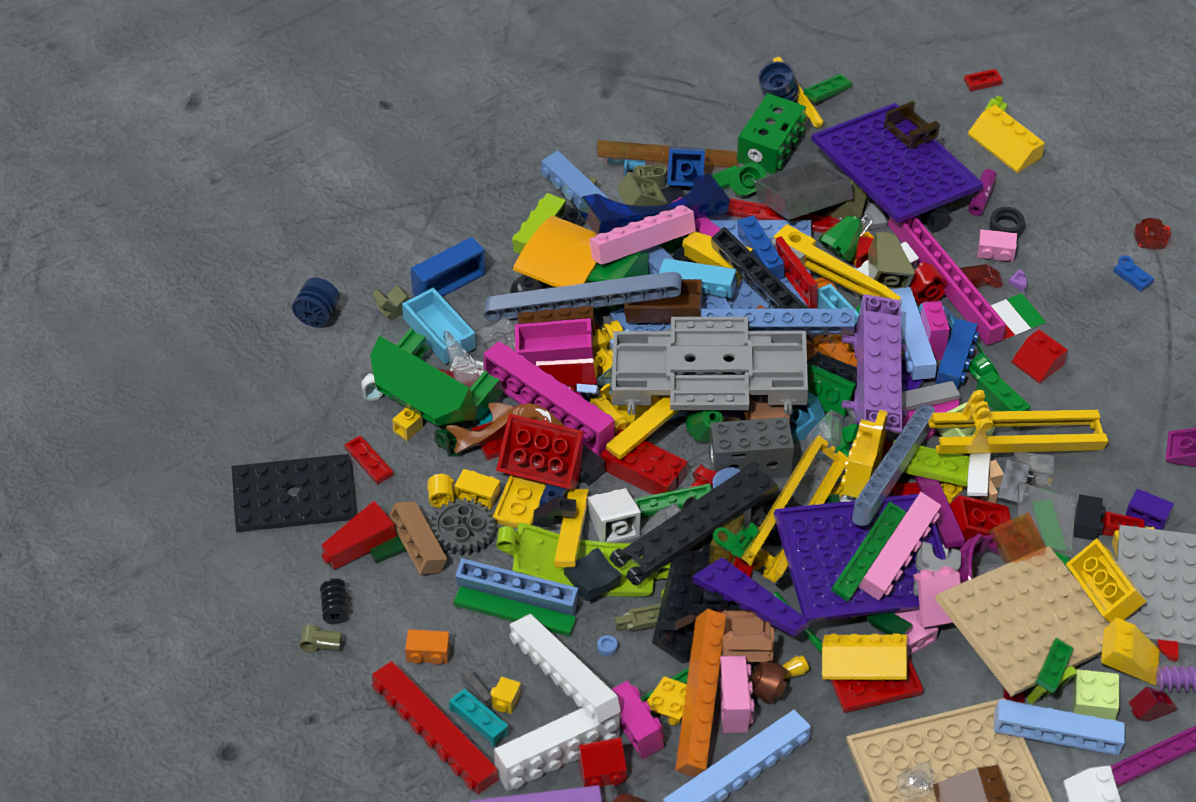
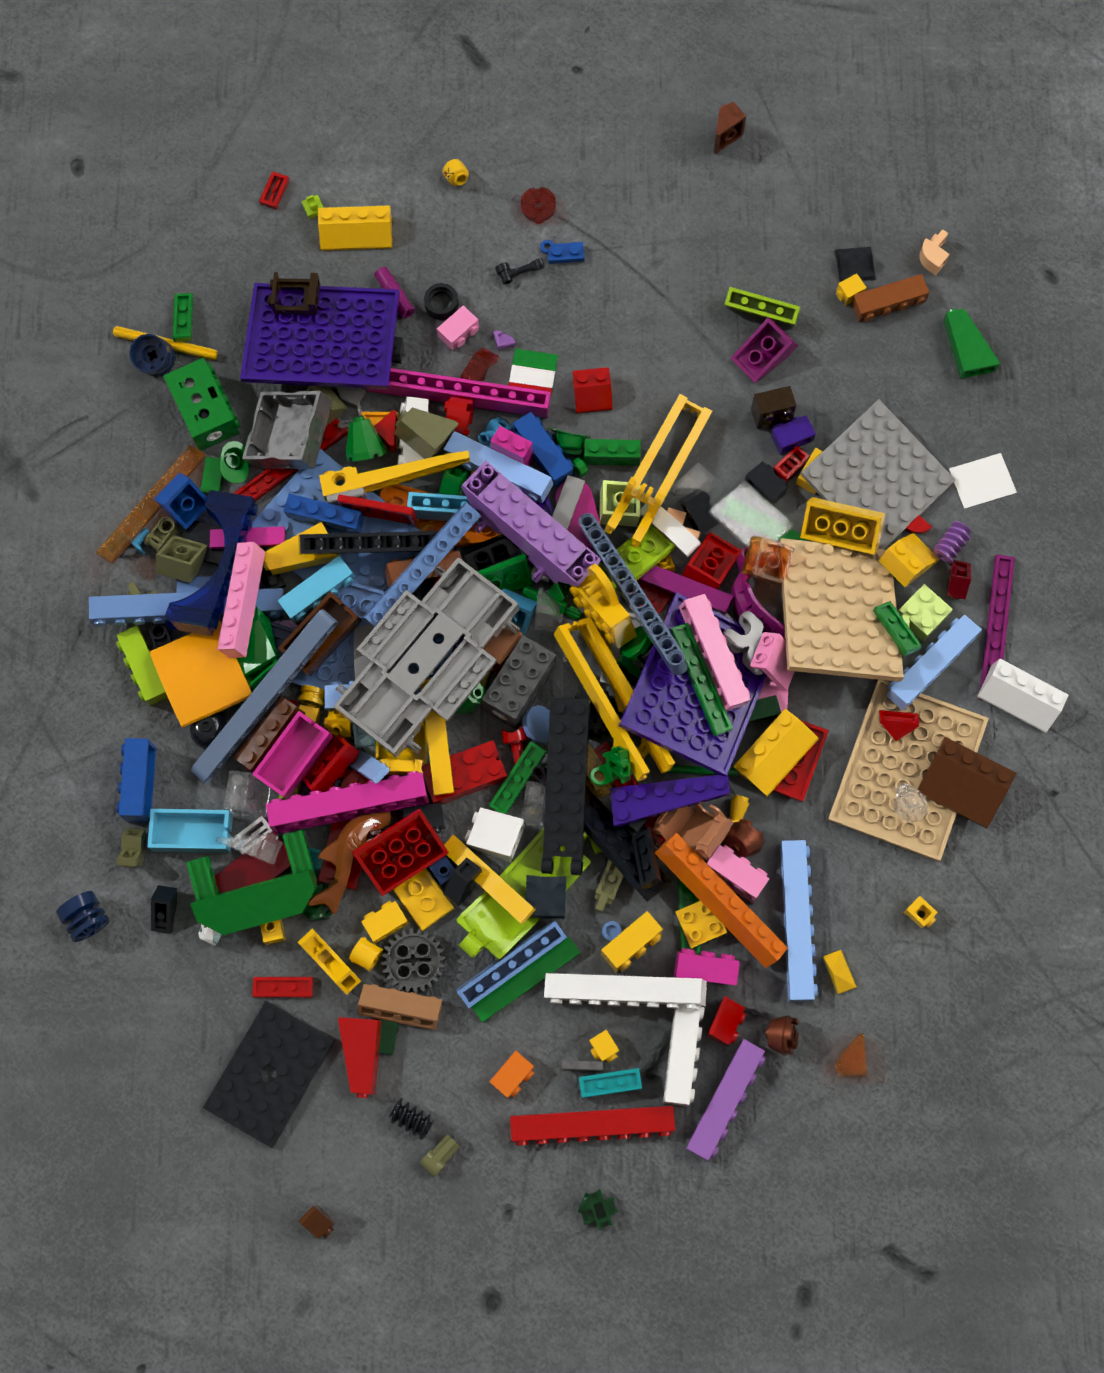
camera: 50 degrees left, 25 degrees up
(200, 585) = (317, 1222): none -> reddish brown slope
(361, 348) = (163, 908): none -> black slope
(361, 765) = (597, 1209): none -> dark green piece
(415, 469) = (329, 961): none -> yellow arch
(610, 655) = (632, 942): none -> yellow brick
(969, 387) = (580, 467): none -> green tile
(977, 732) = (898, 723): none -> red slope
(1074, 248) = (506, 274): none -> black brick
(1118, 169) = (455, 172): none -> yellow head
(1156, 475) = (773, 407): none -> dark brown brick

